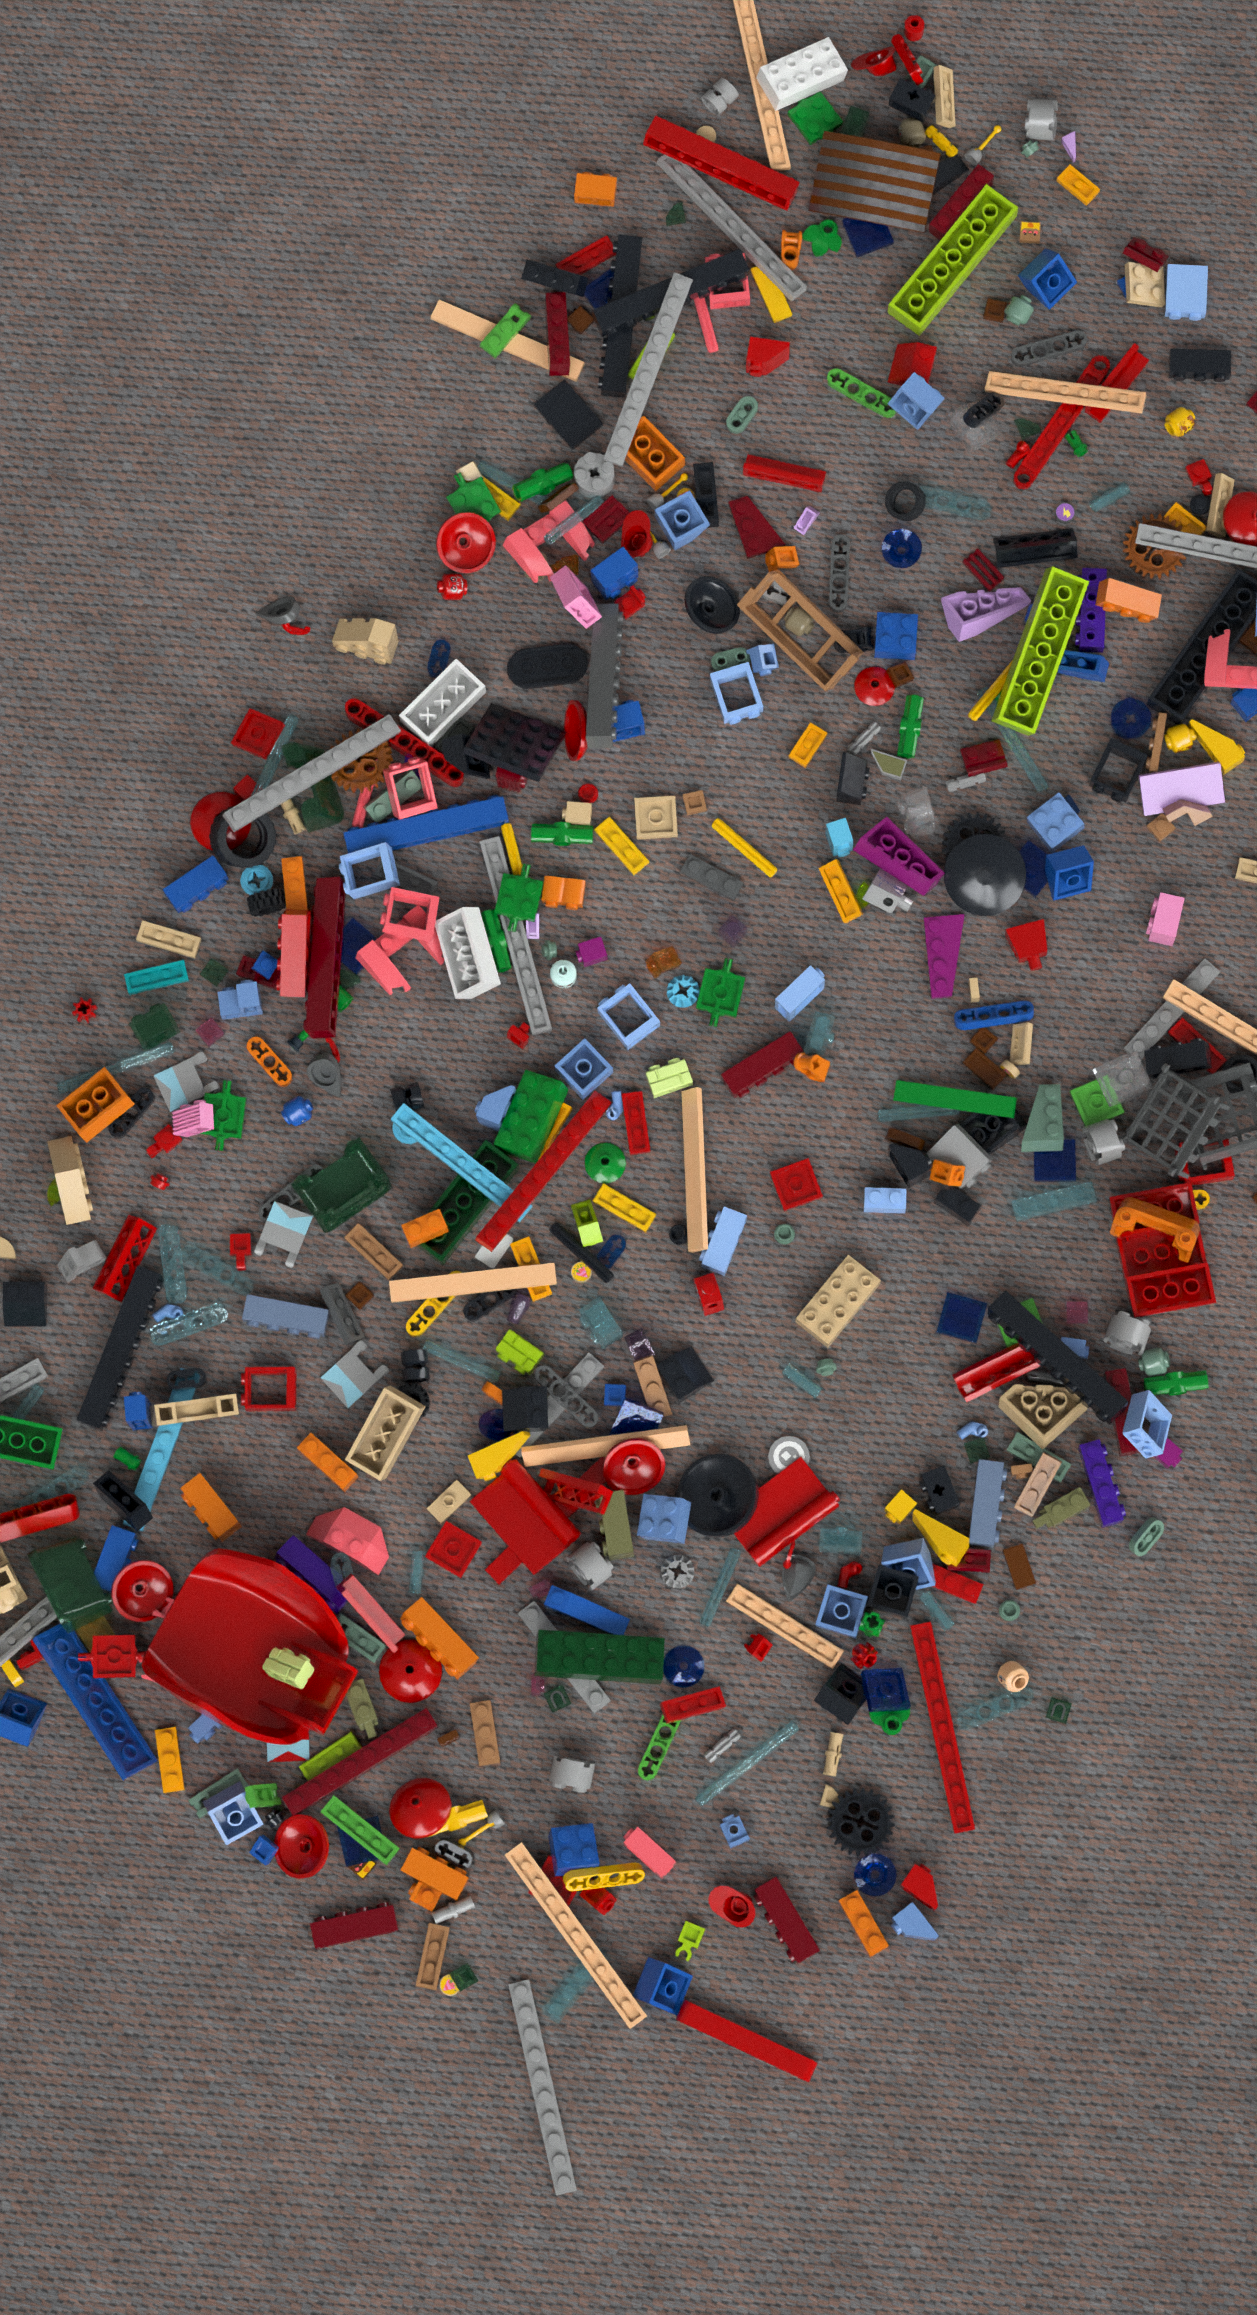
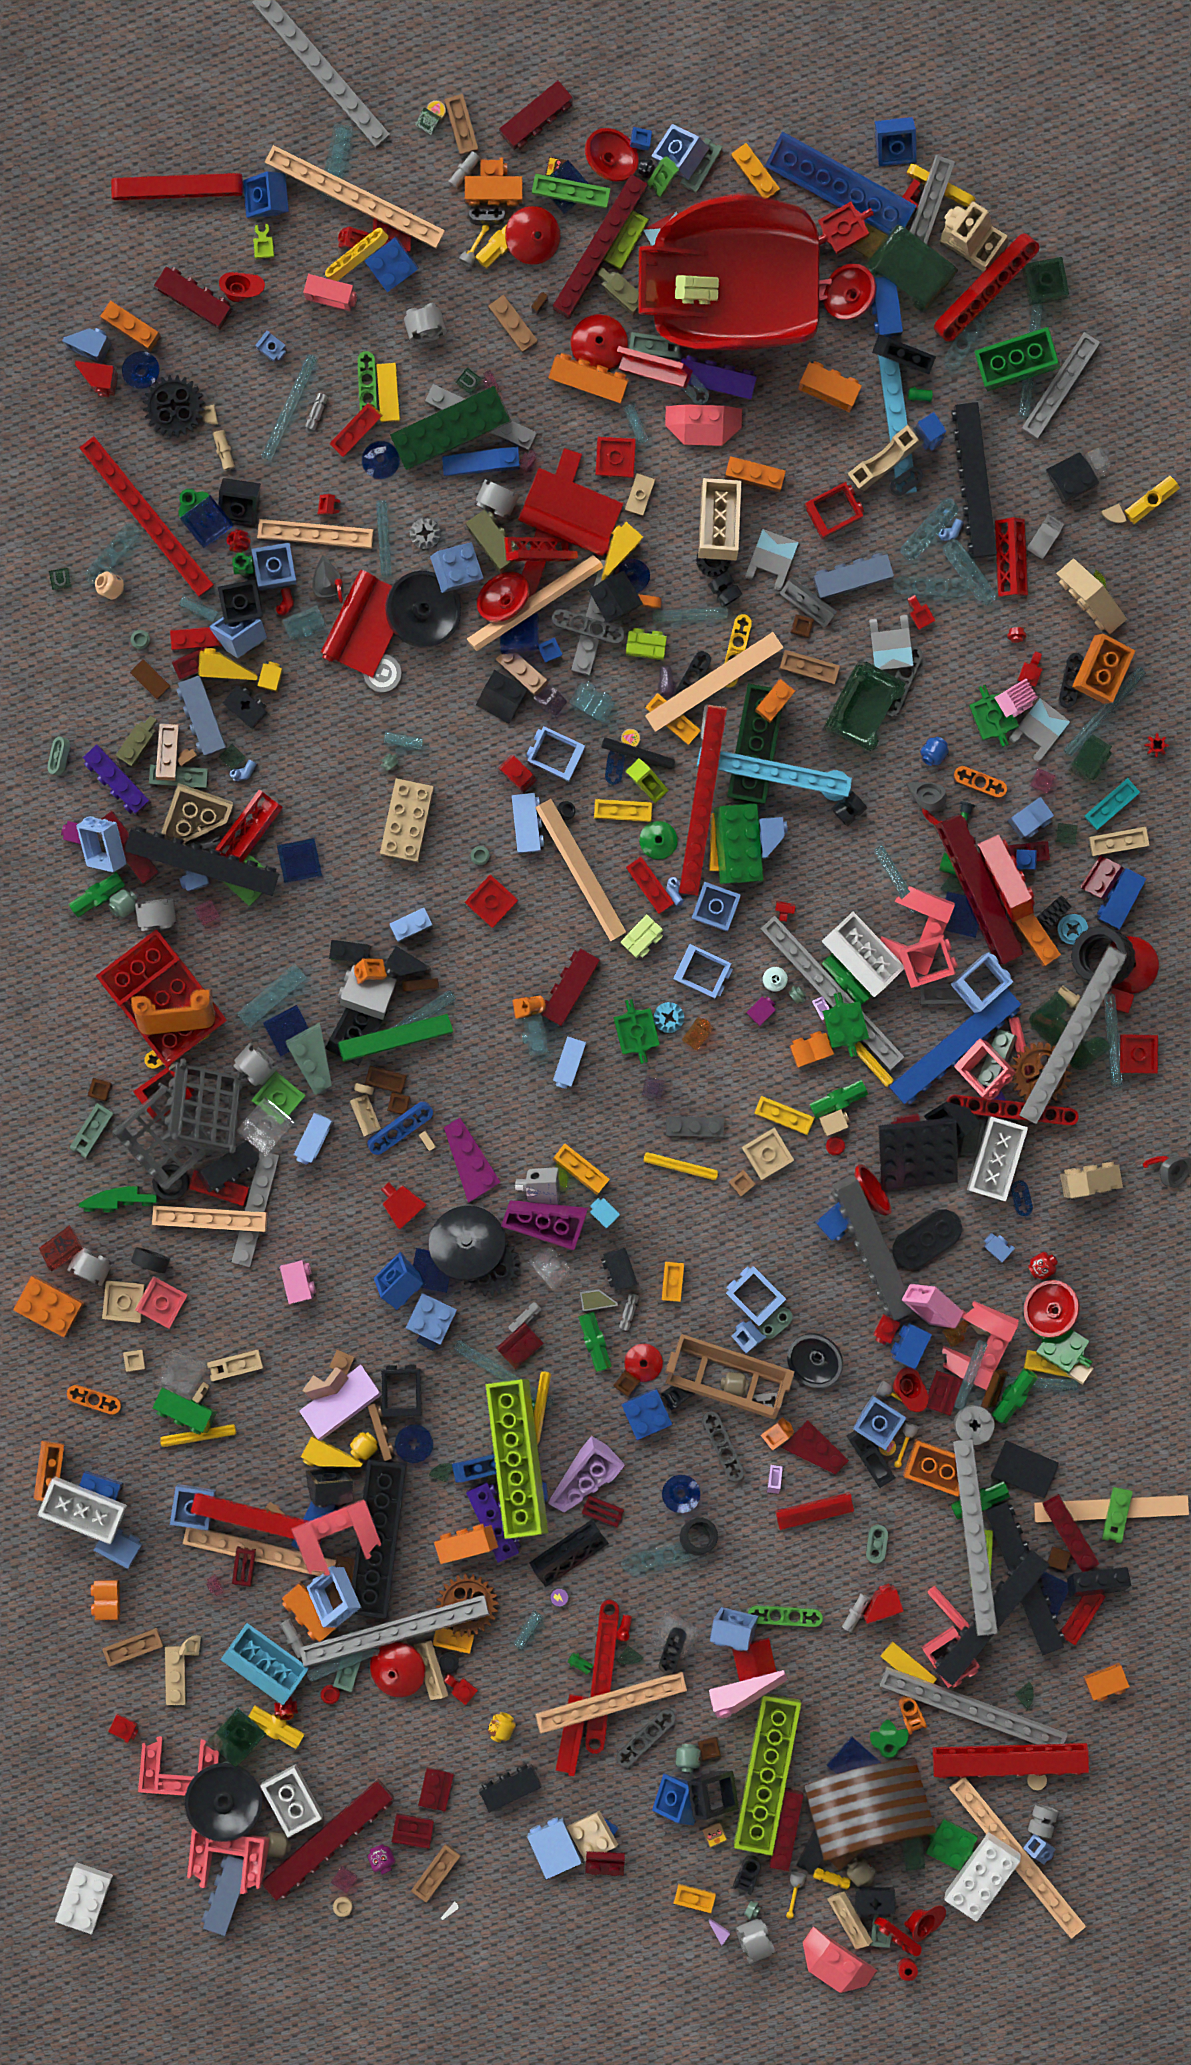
camera: 145 degrees right, 10 degrees up
(203, 913) = (1101, 877): none -> plate
(398, 1019) = (893, 873): none -> clear light blue axle
(485, 624) = (998, 1247): none -> medium blue brick
(613, 405) = (988, 1497): none -> green piece
(642, 1728) = (388, 392): none -> yellow tile
(648, 1276) = (539, 737): none -> light blue window
(735, 69) = (1043, 1853): none -> medium blue brick
(794, 363) = (856, 1612): none -> light grey pin
(945, 338) = (736, 1696): none -> bright pink wedge
(977, 66) = (835, 1963): none -> coral wedge
(1020, 179) = (745, 1877): none -> black piece
(1023, 275) = (698, 1788): none -> black window
(1082, 1044) = (313, 1138): none -> light blue window
(1117, 680) = (441, 1471): none -> clear green tile
(1231, 714) = (329, 1487): none -> black slope

